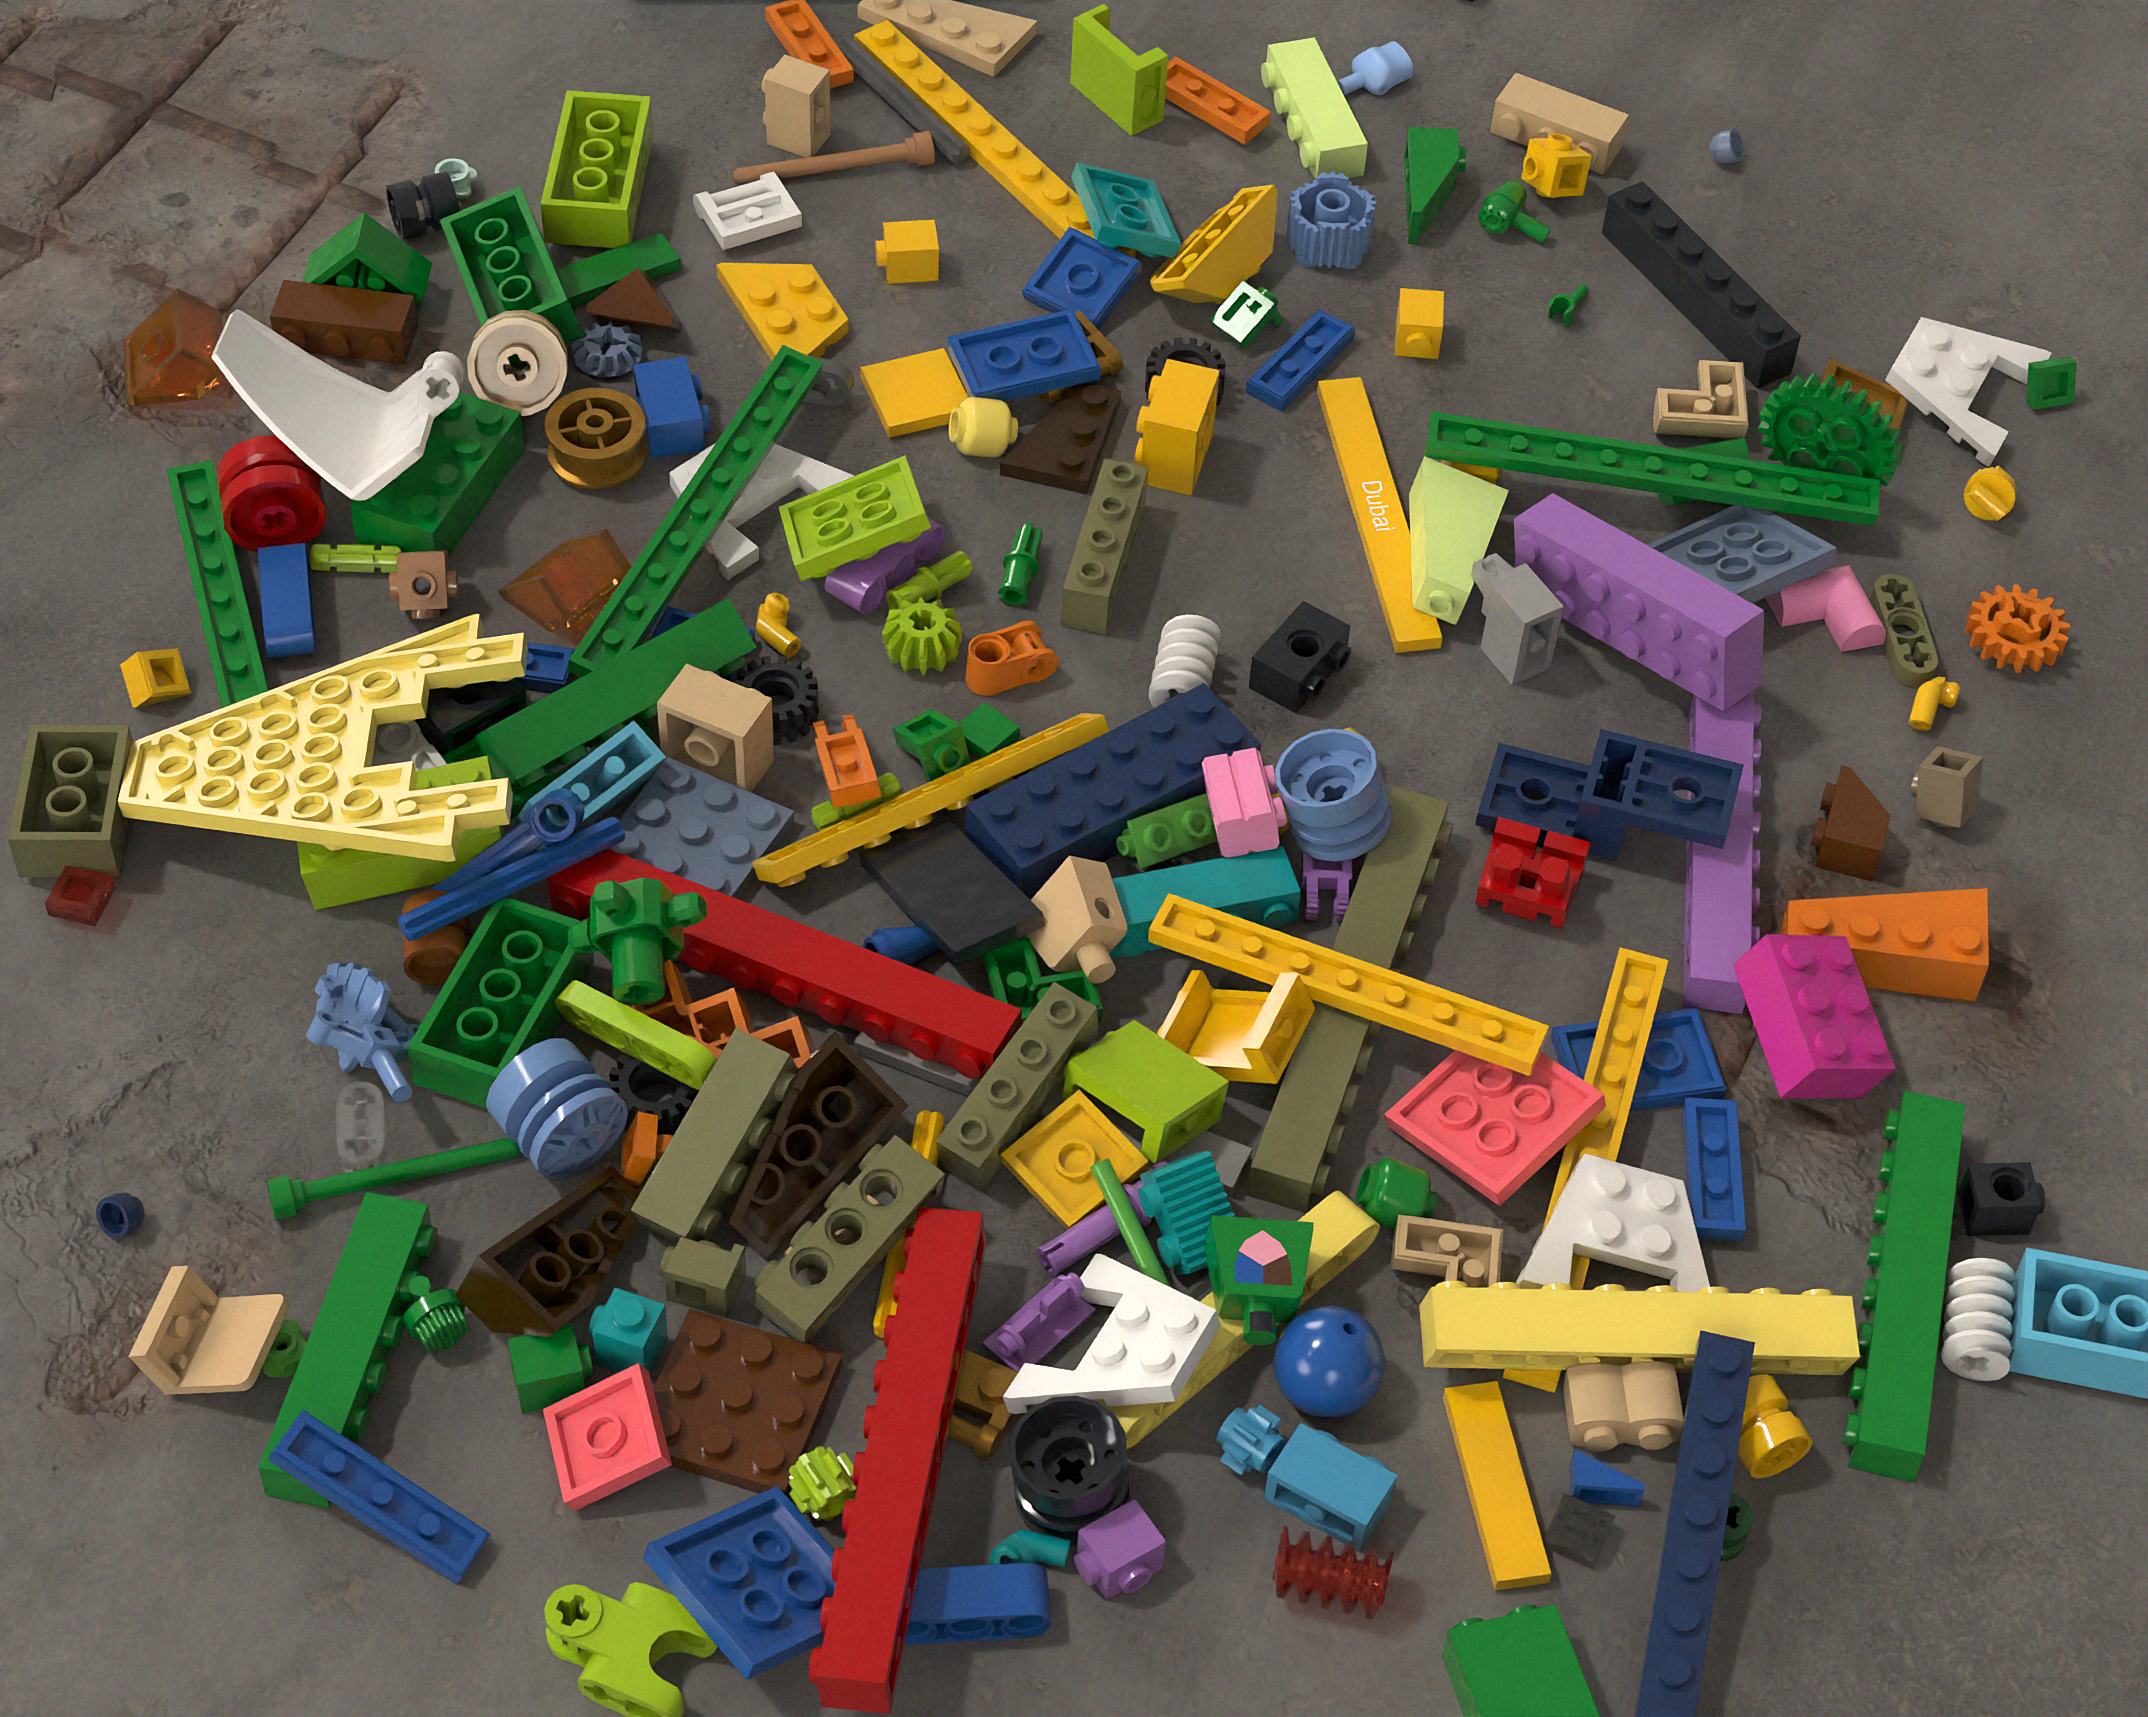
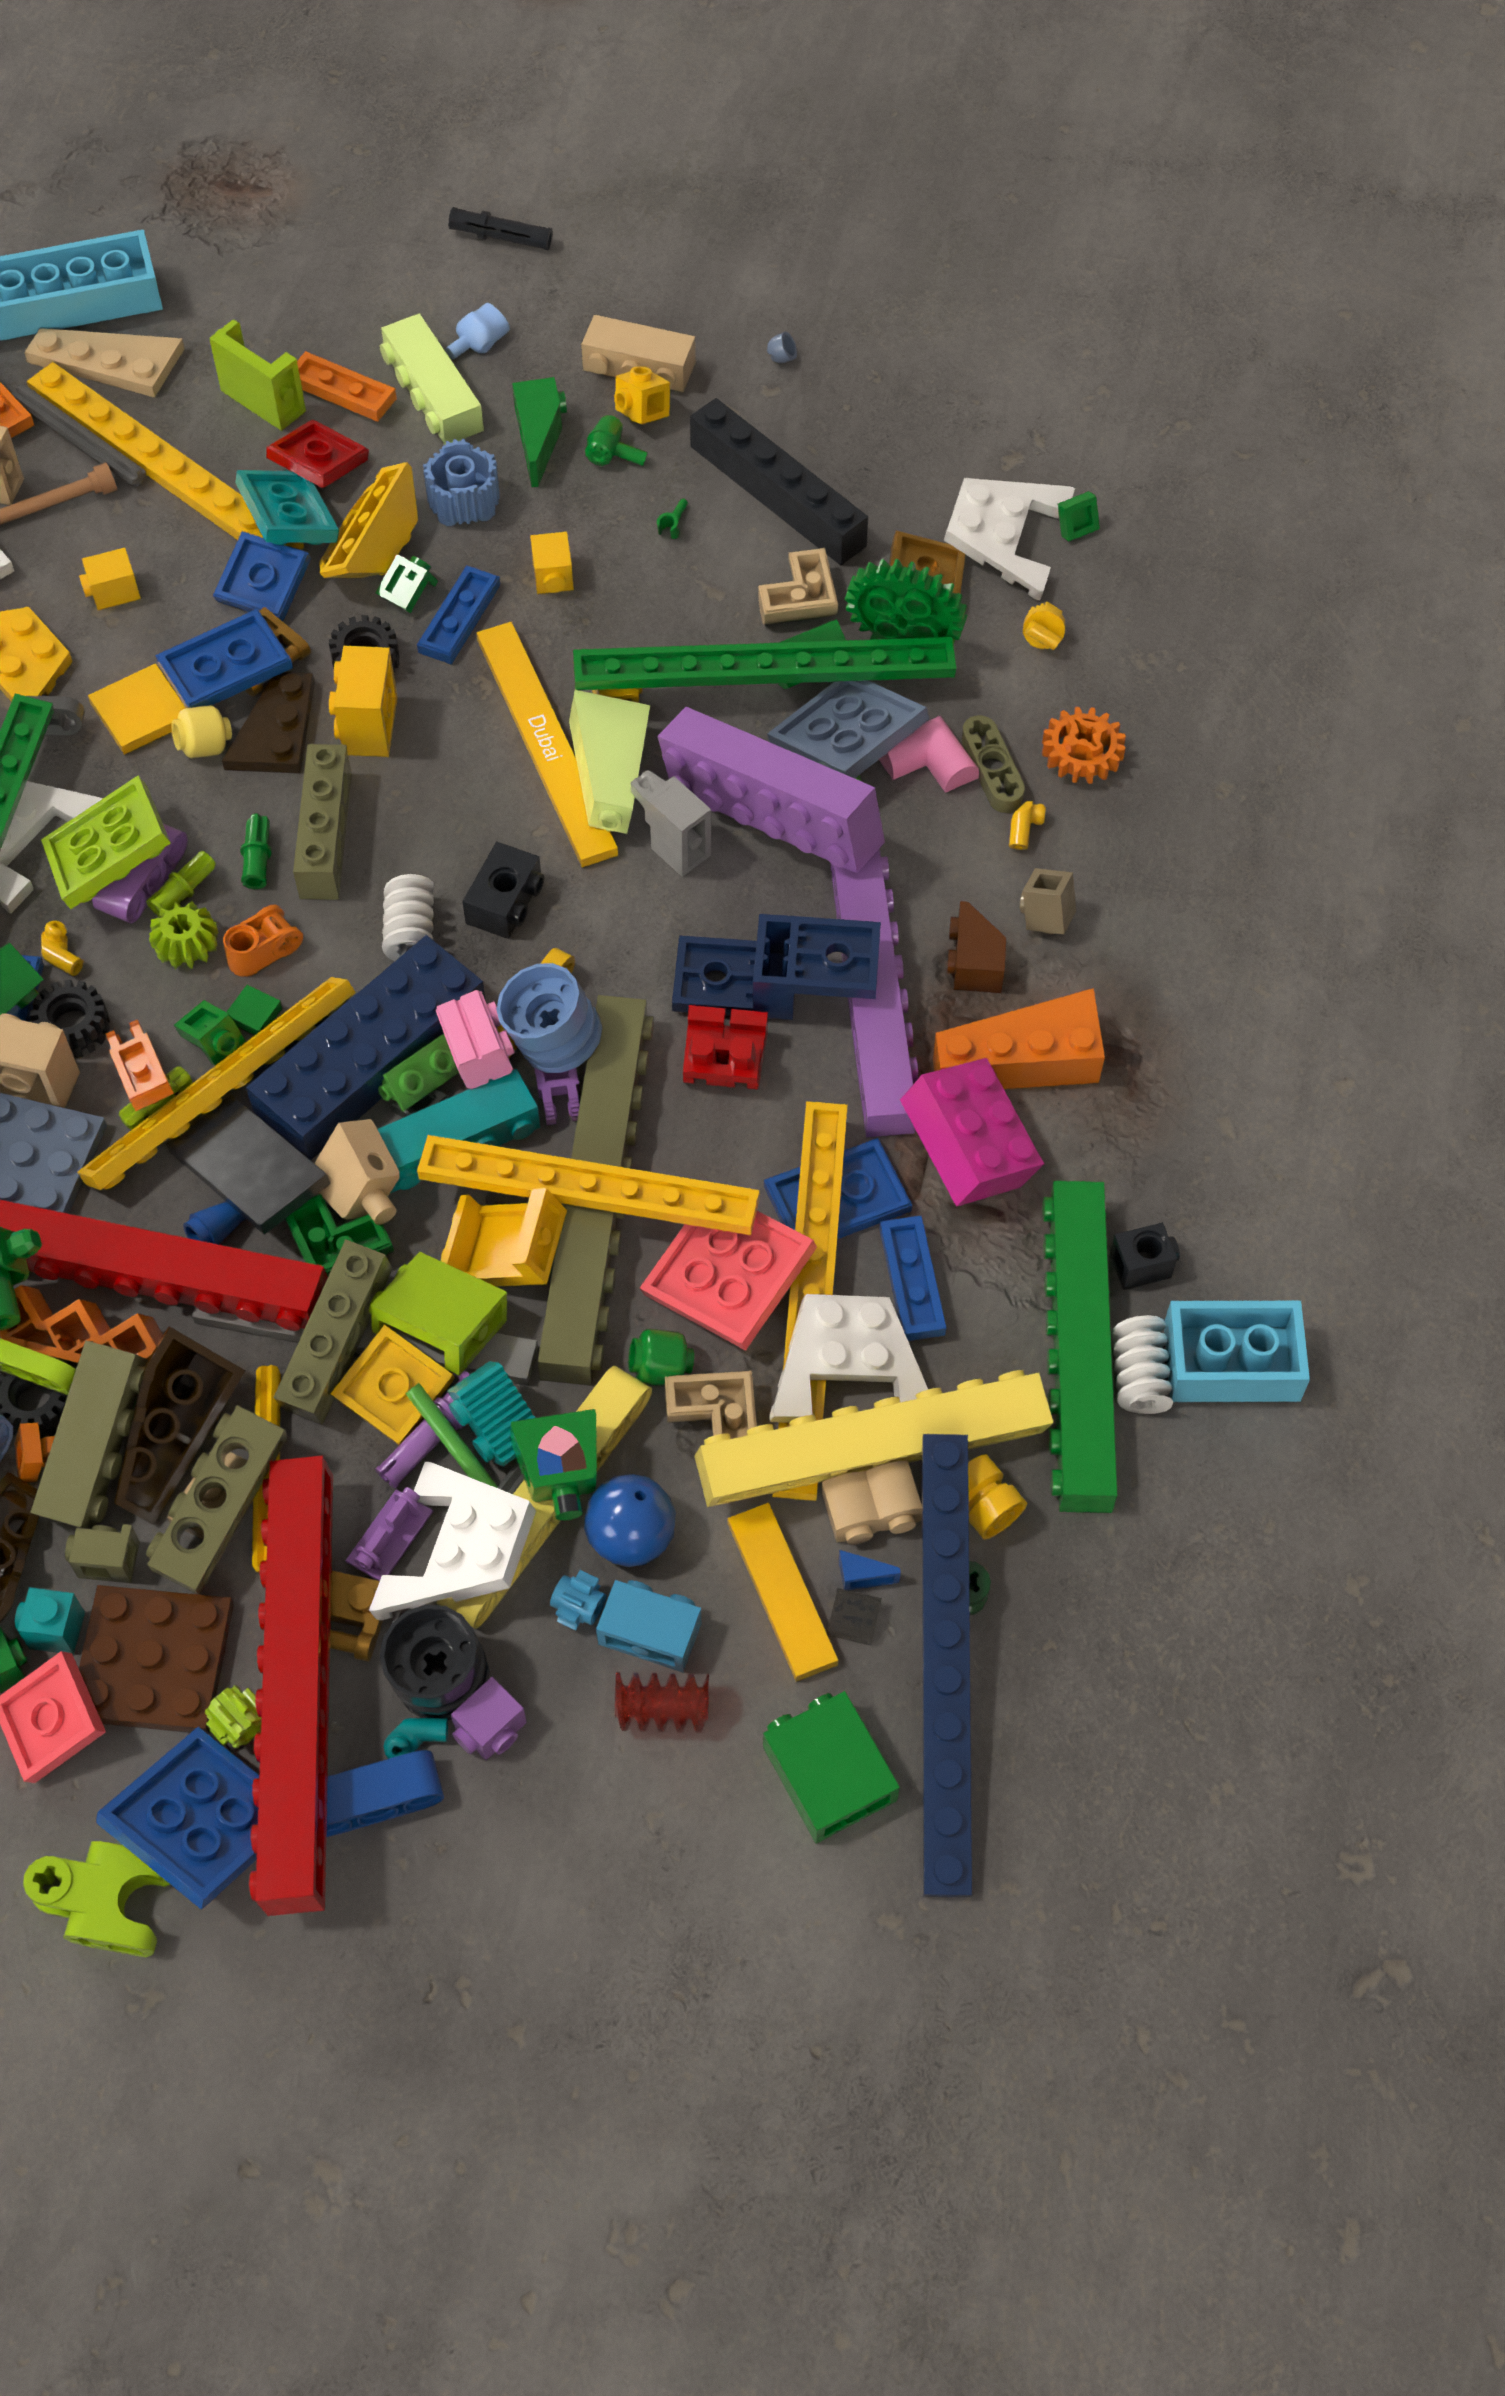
camera: 10 degrees left, 10 degrees up
(1169, 163) = (317, 453): none -> red plate

